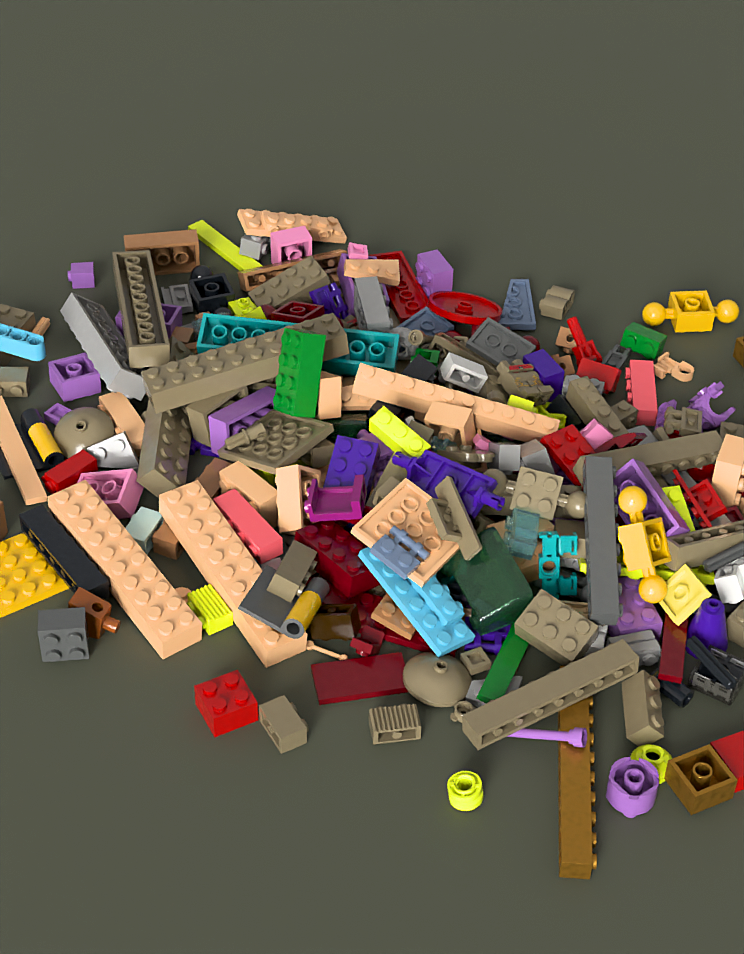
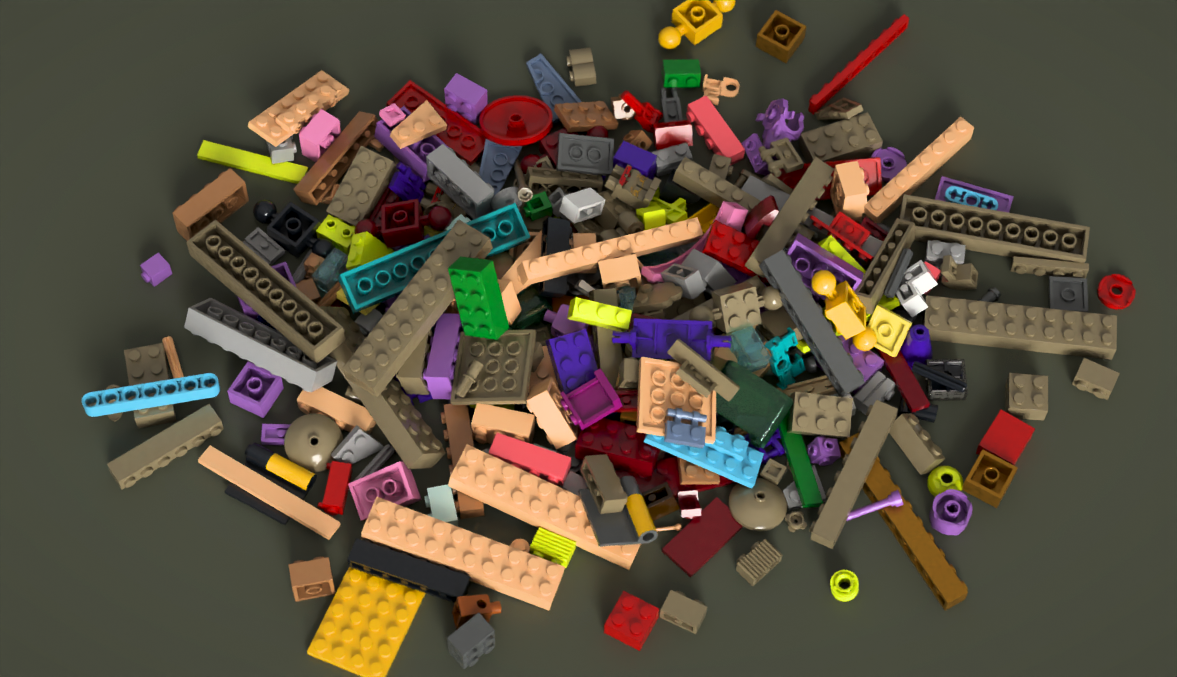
camera: 35 degrees left, 20 degrees up
(529, 326) = (585, 115): none -> medium nougat plate
(538, 664) = (824, 450): none -> medium lavender brick

